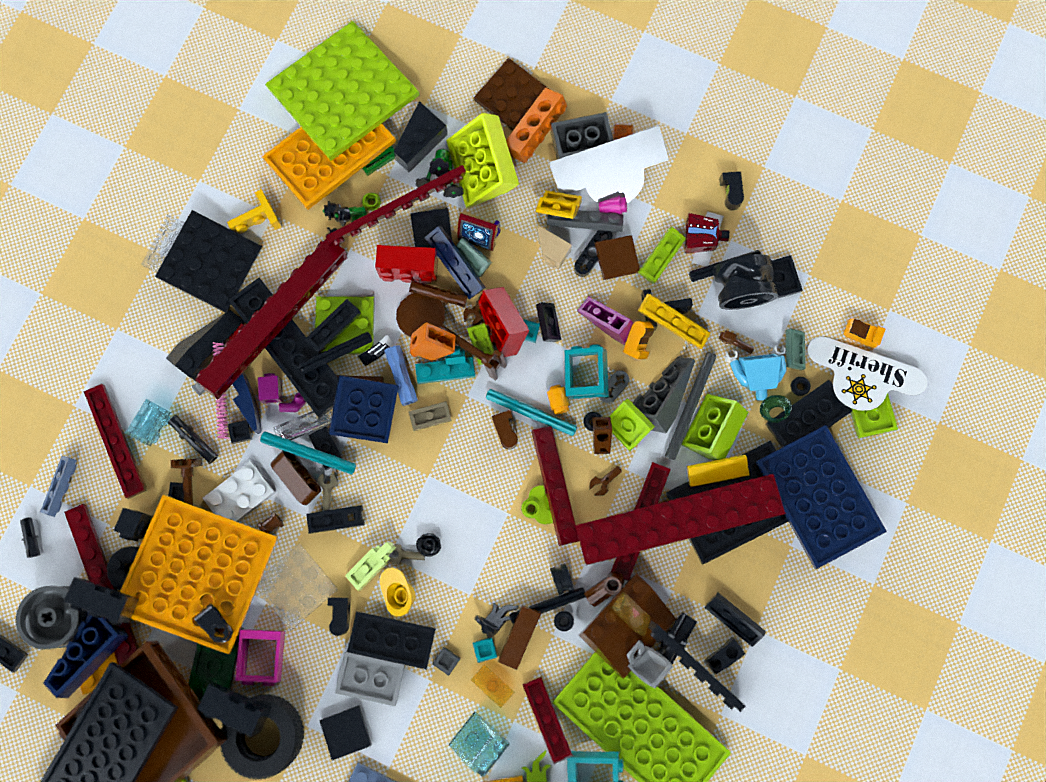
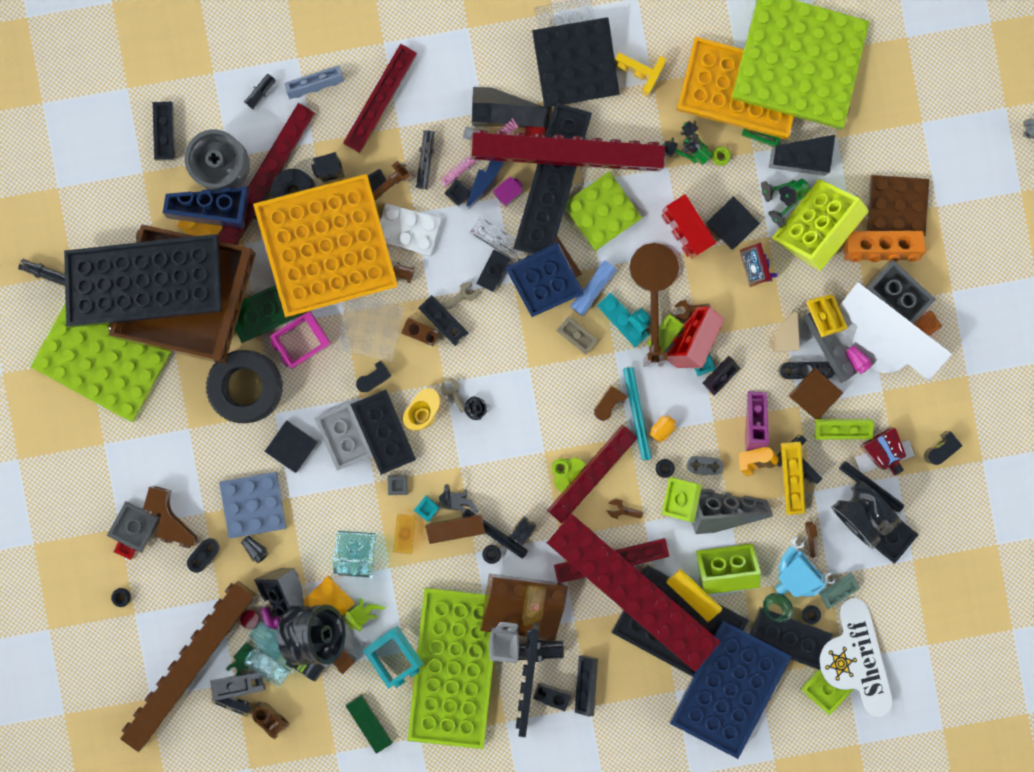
camera: 55 degrees right, 10 degrees up
(100, 601) = (255, 192): black wedge -> none
(148, 423) = (413, 115): clear light blue brick -> none
(211, 621) = (300, 286): black piece -> none
(234, 709) = (250, 354): black wedge -> none
(295, 405) = (509, 220): magenta arm -> none
(295, 477) = (454, 264): beam -> none
(307, 452) = (479, 261): teal axle -> none
(330, 546) = (420, 332): none -> reddish brown leg
(333, 326) = (594, 205): black plate -> none
(335, 352) = (574, 223): black axle -> none
(370, 565) = (427, 374): yellowish green hinge -> none
(376, 351) = (598, 253): sticker -> none
(389, 210) = (722, 181): dark red plate -> none
(431, 342) = (637, 295): orange torso -> none
(446, 296) = (679, 263): reddish brown pin -> none
(455, 262) = (717, 264): dark blue plate -> none
(474, 257) = (731, 274): sand green plate -> none
(547, 720) = (409, 594): dark red tile -> none
(590, 391) = (685, 448): teal window -> none
(602, 435) = (658, 484): reddish brown leg -> none
(603, 589) = (537, 569): reddish brown piece -> none
(690, 406) = (733, 537): dark grey axle -> none
(864, 333) = (892, 637): light orange leg -> none

